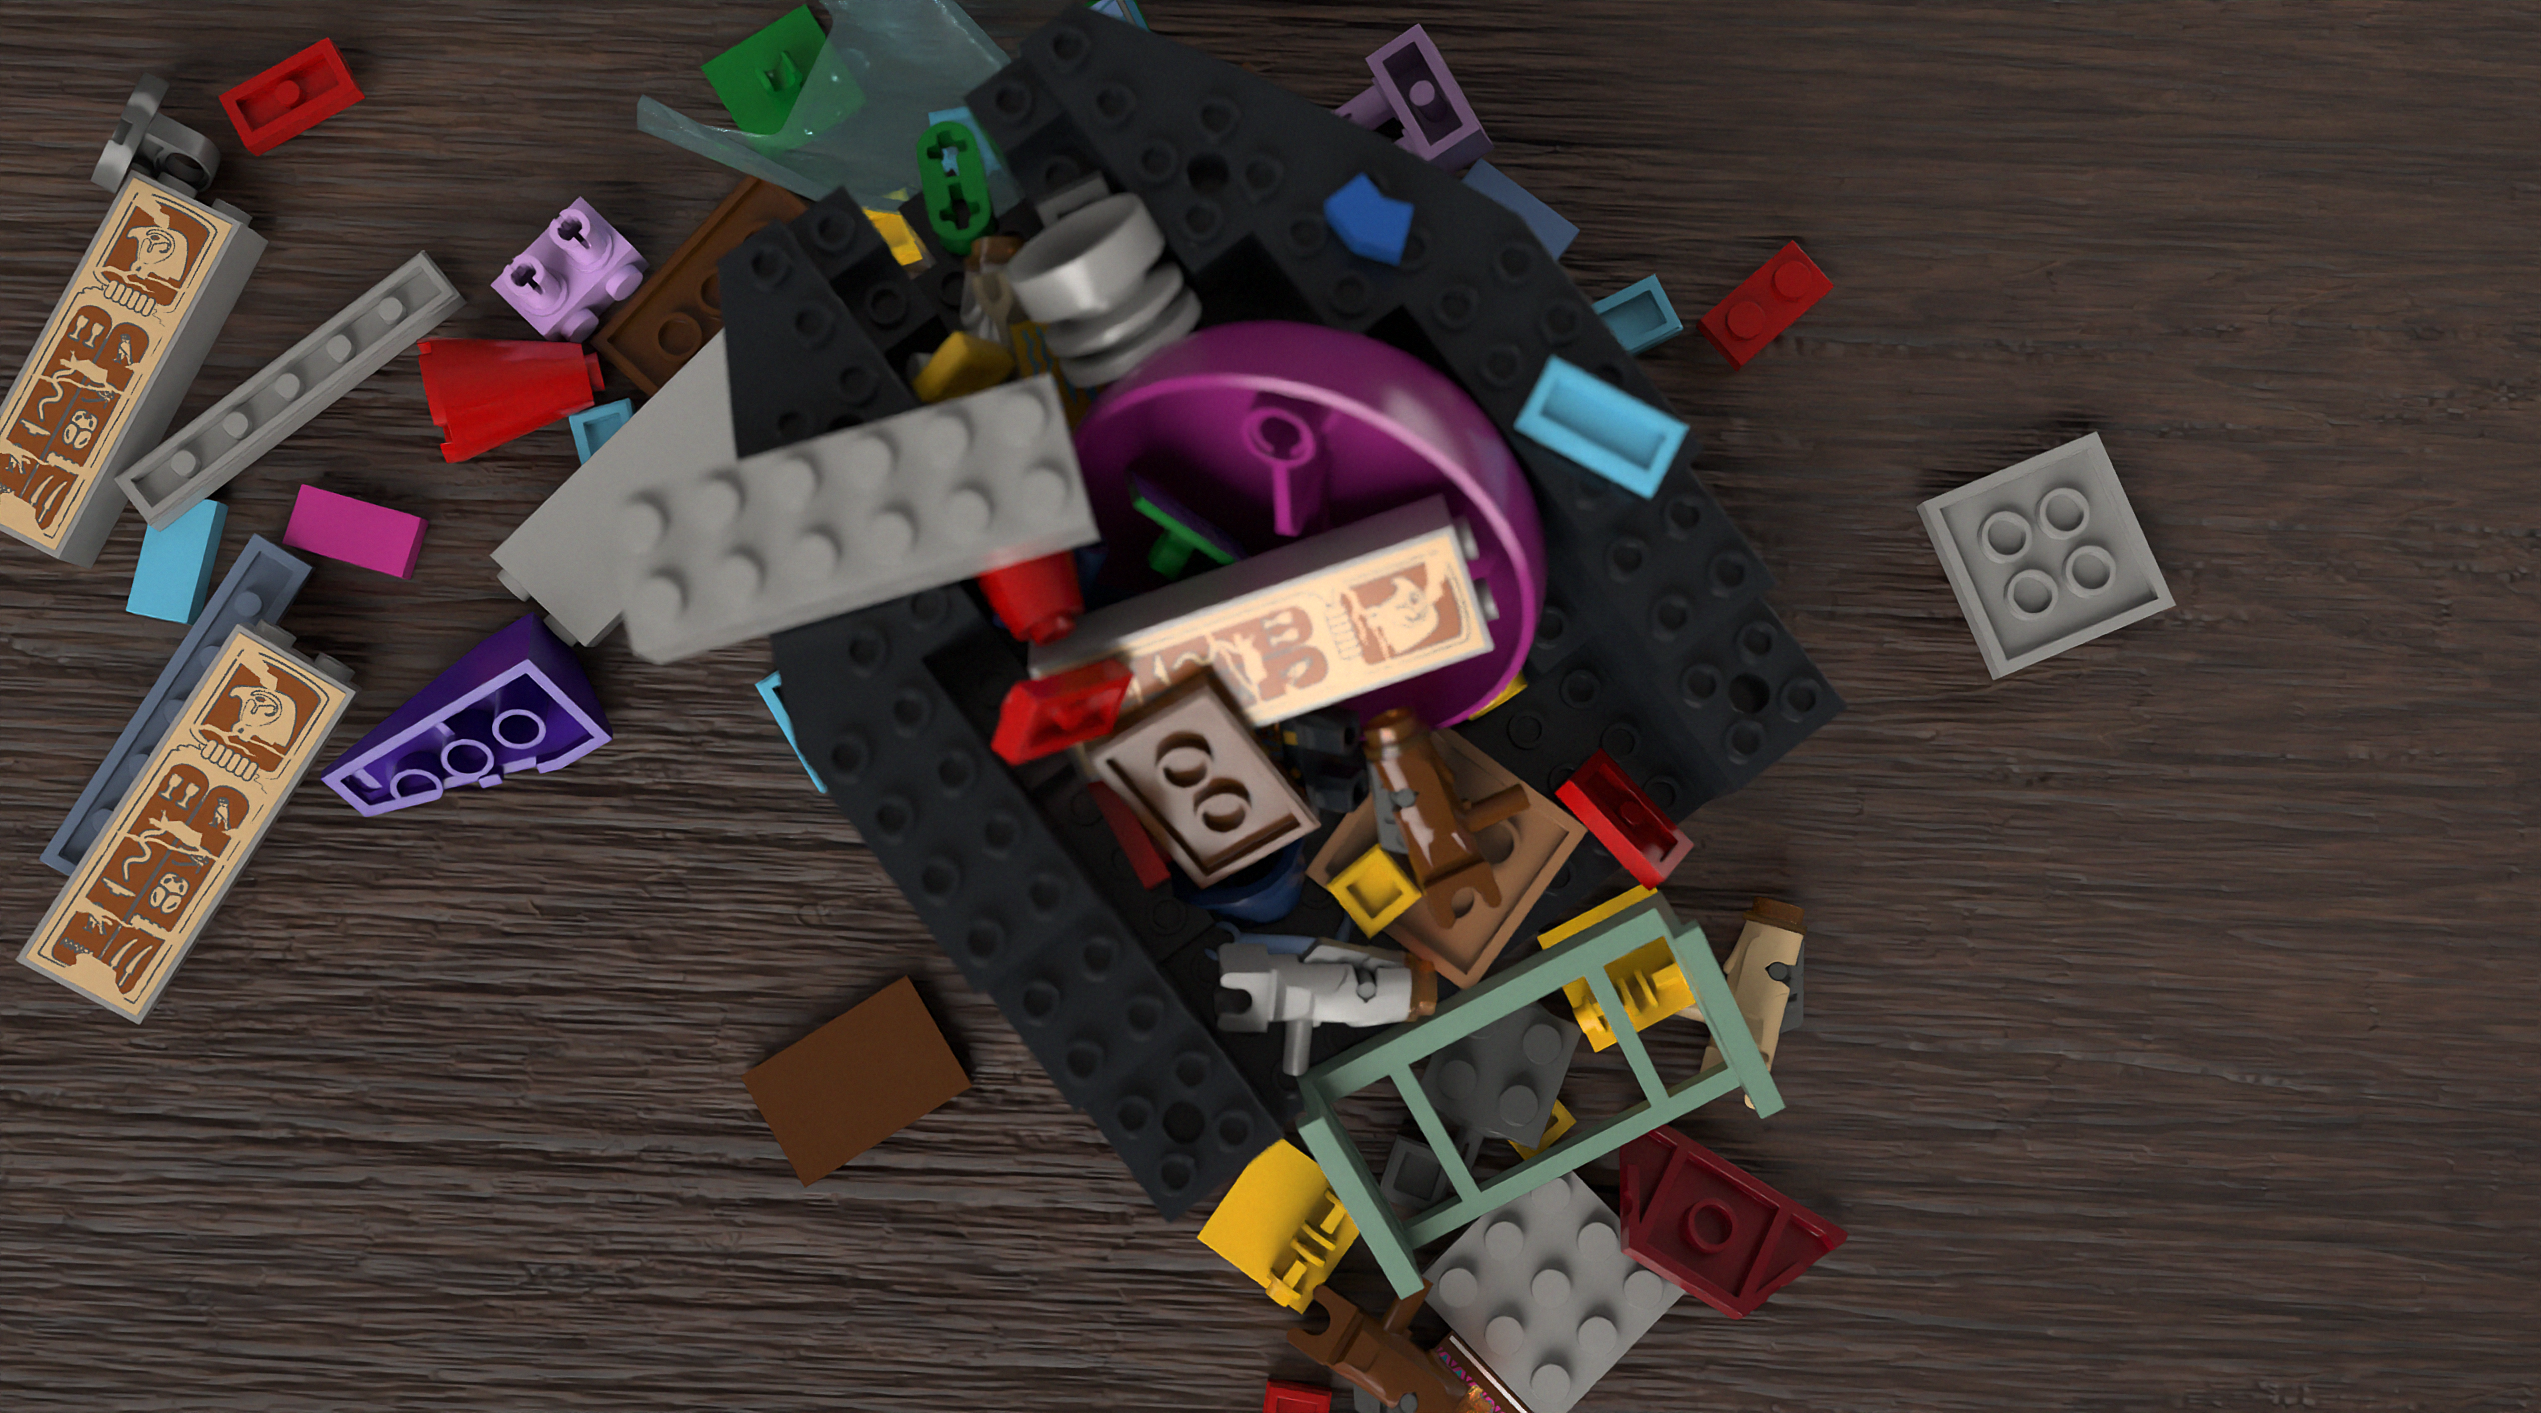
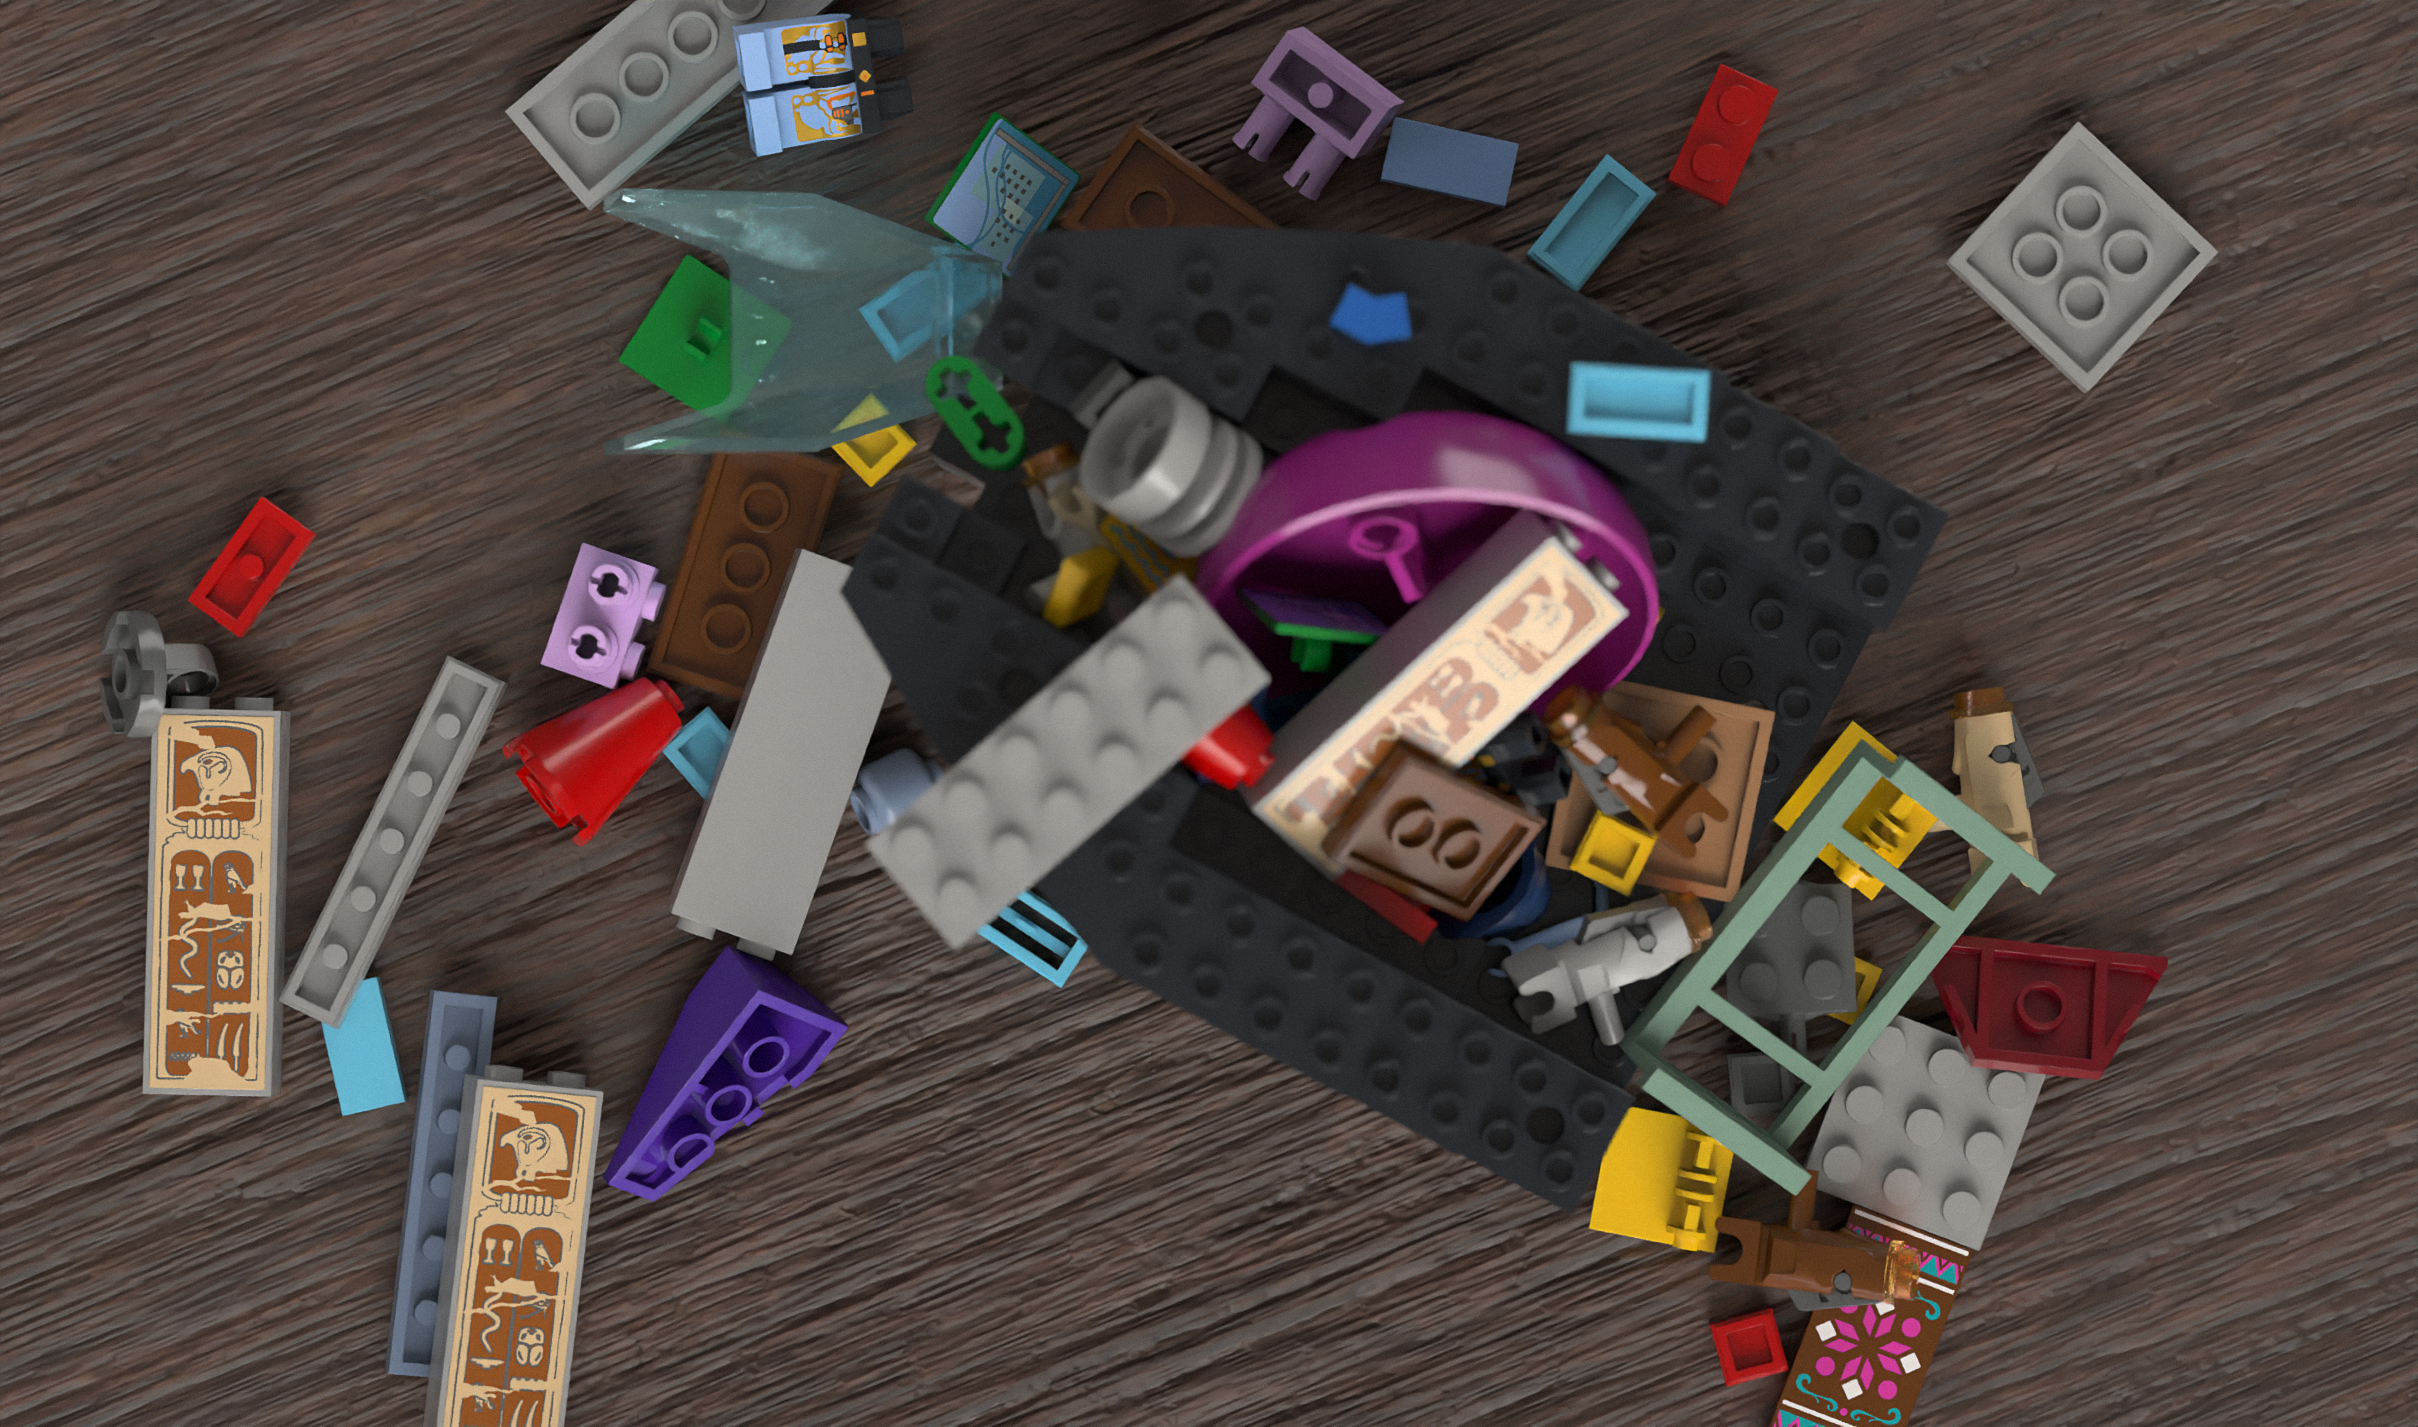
camera: 25 degrees left, 5 degrees up
(355, 532) = (515, 946): dark pink tile -> none
(857, 1080) = (1219, 1230): reddish brown tile -> none
(1062, 709) = (1301, 832): red plate -> none
(1624, 819) = (1803, 688): red plate -> none

